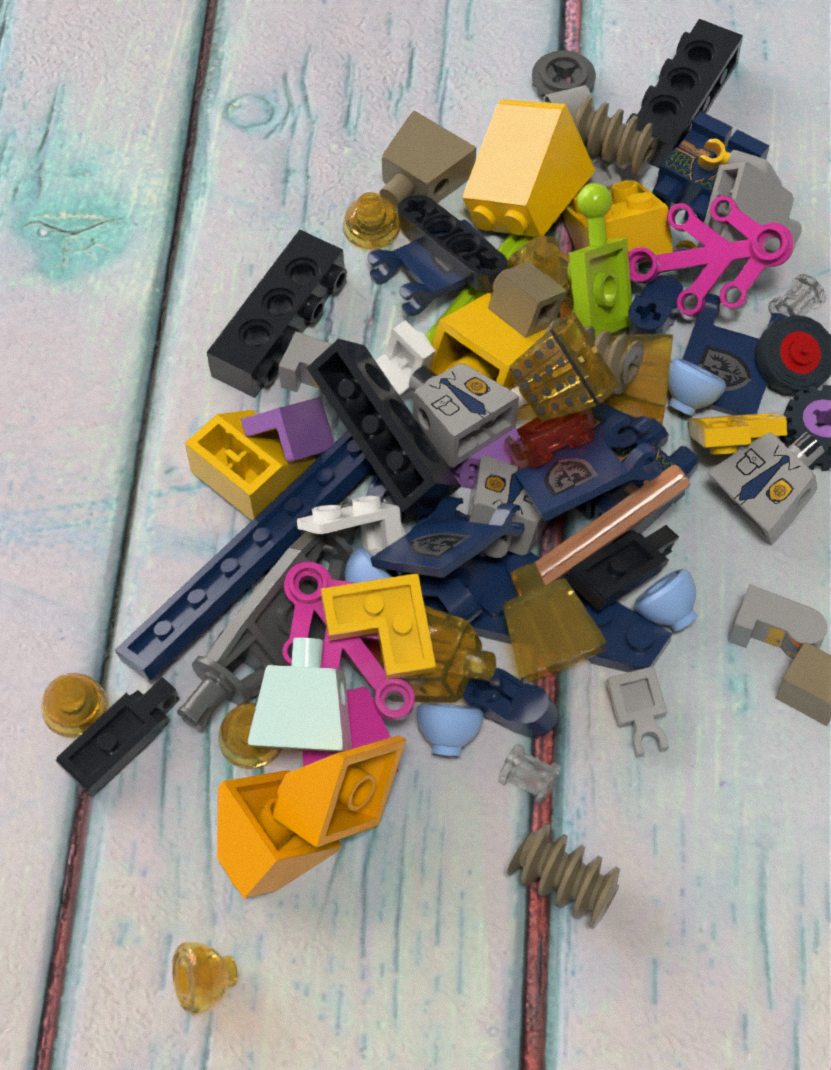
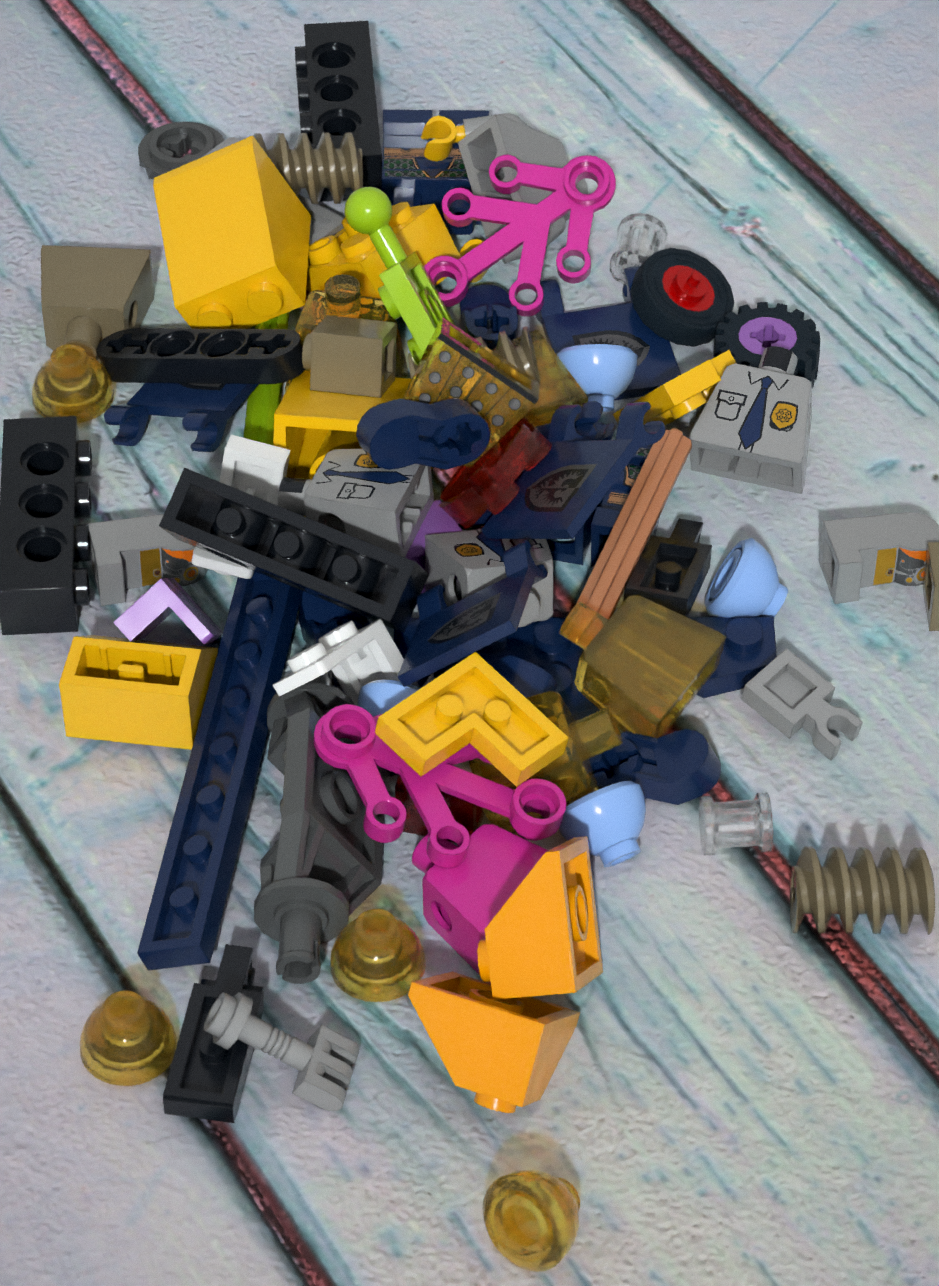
camera: 35 degrees left, 15 degrees down
(118, 736) = (321, 1062): none -> light grey hinge
(302, 704) = (445, 855): light aqua torso -> none
(502, 382) = (423, 433): none -> dark blue piece

